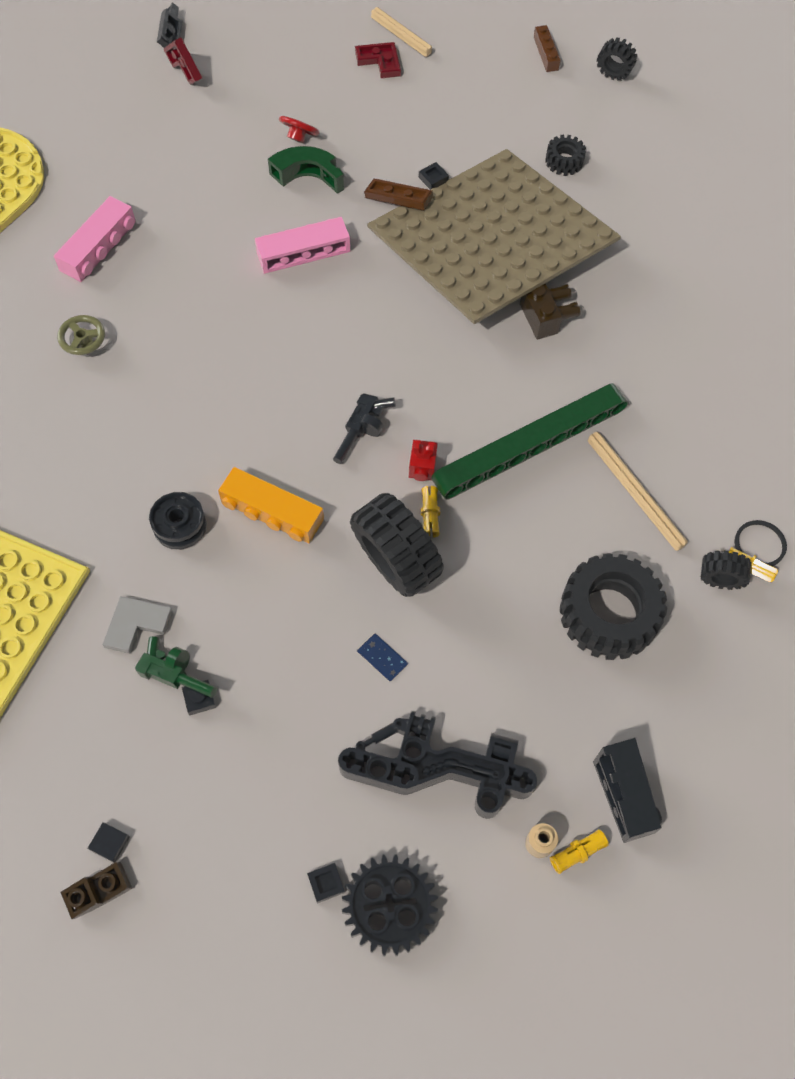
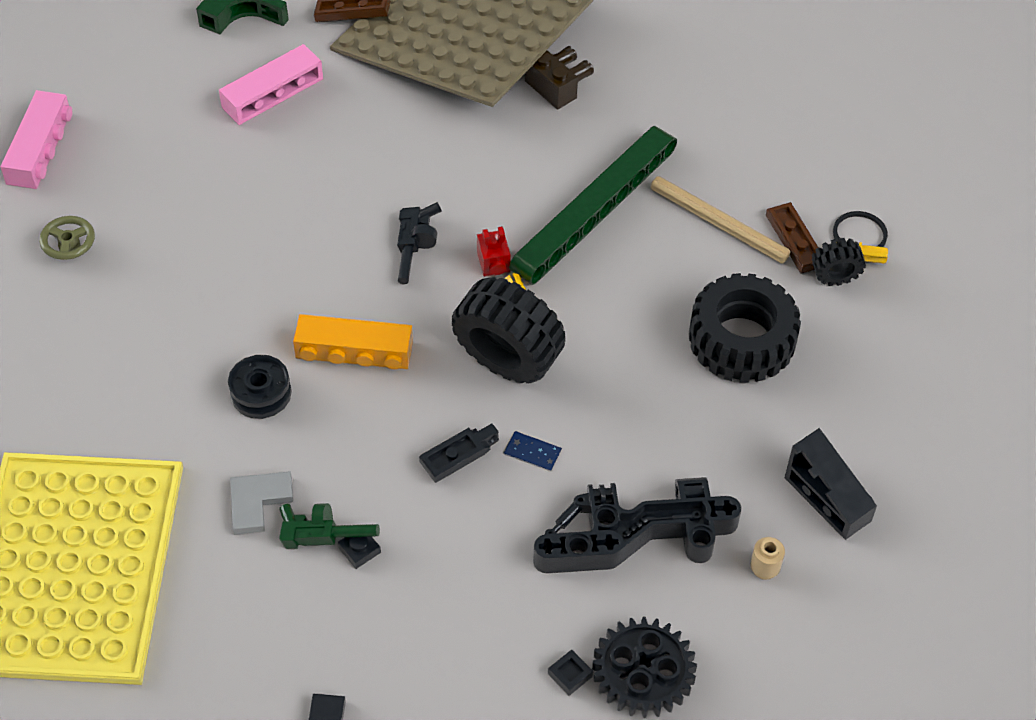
camera: 20 degrees left, 10 degrees down
(316, 638) = (458, 451): none -> black hinge
(579, 851) = (806, 558): yellow pin -> none
(697, 527) = (793, 235): none -> reddish brown tile

